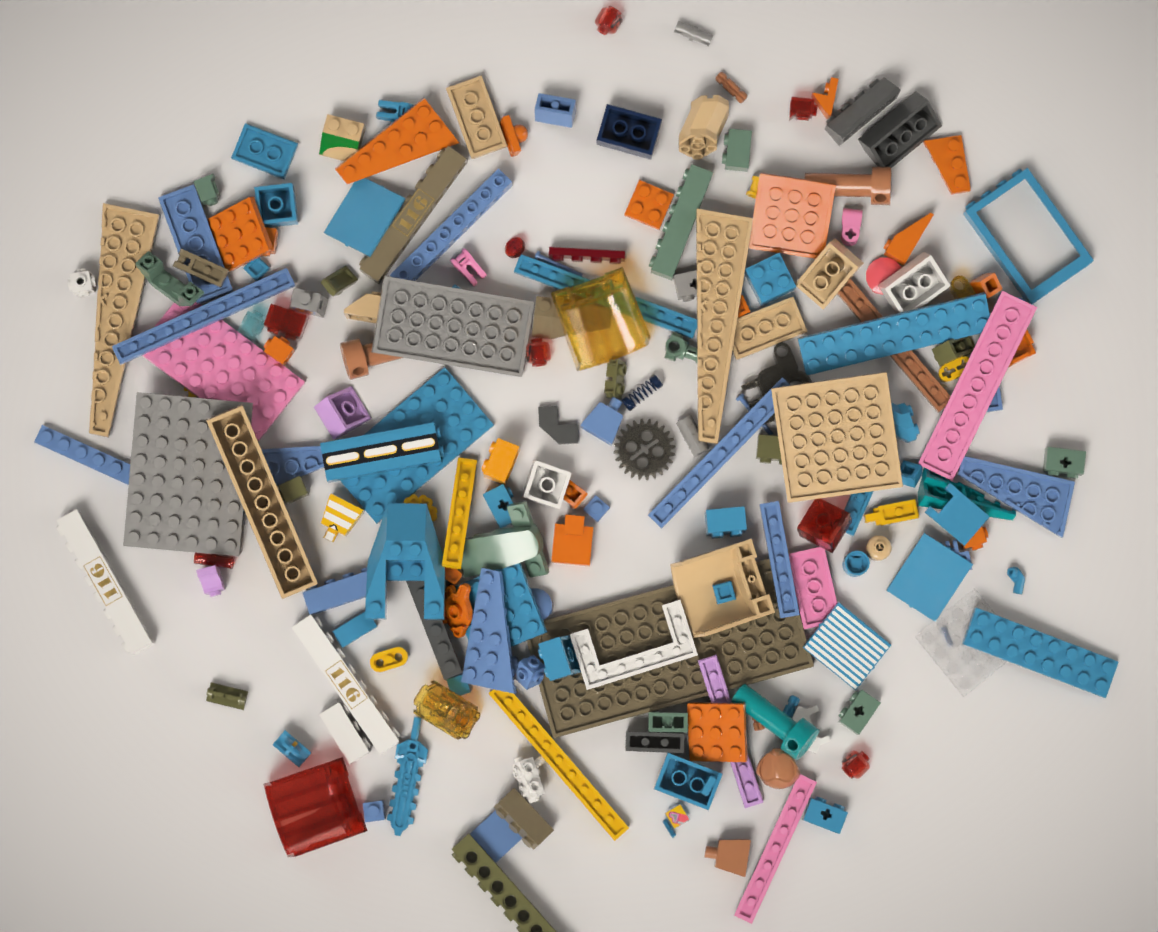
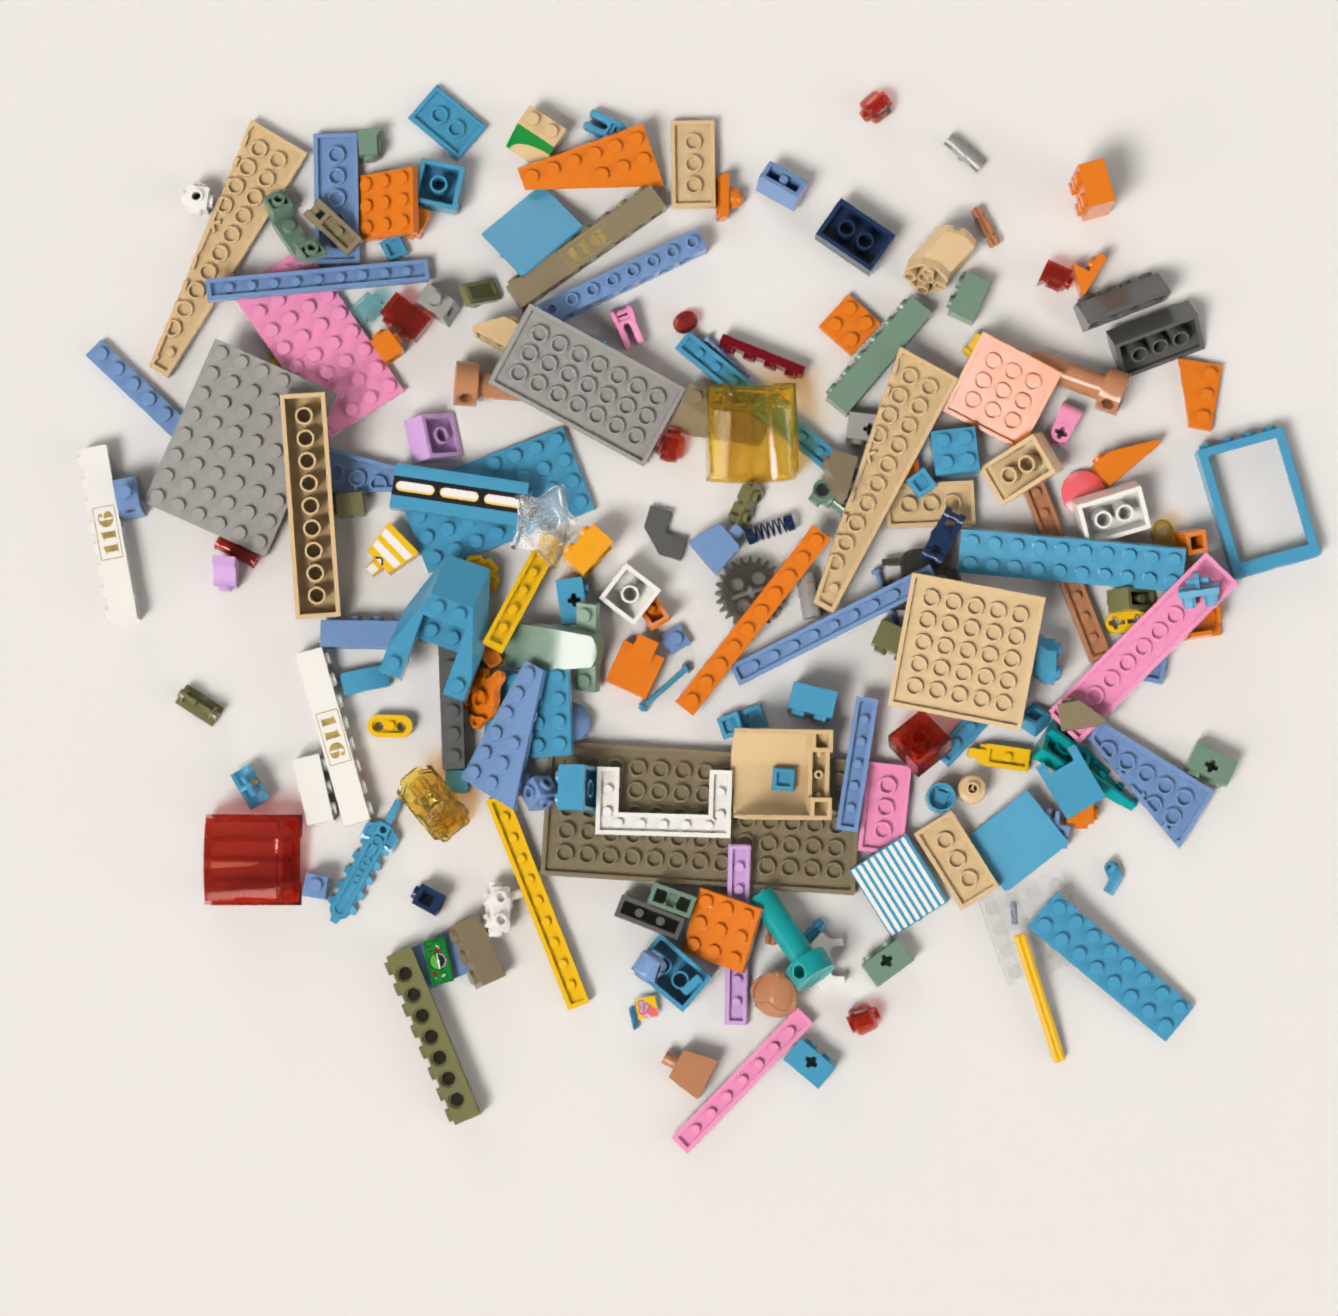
camera: 20 degrees right, 0 degrees up
(110, 546) = (129, 497): none -> medium blue torso
(459, 452) = (545, 524): none -> clear plate
(476, 792) = (437, 899): none -> dark blue brick
(495, 837) = (438, 961): none -> tile
(601, 550) = (643, 706): none -> dark azure axle
(654, 471) = (752, 620): none -> orange plate
(669, 782) = (650, 965): none -> medium blue head
(678, 552) = (748, 718): none -> dark azure slope
(683, 328) = (839, 473): none -> dark tan slope
(752, 313) = (921, 483): none -> dark azure plate
(785, 350) = (943, 536): none -> dark blue plate
(808, 28) = (1092, 190): none -> orange brick
(886, 609) = (956, 860): none -> tan plate
(944, 458) = (1077, 715): none -> dark tan slope
(992, 697) = (1039, 997): none -> yellow axle
(1005, 322) = (1208, 590): none -> dark azure hips

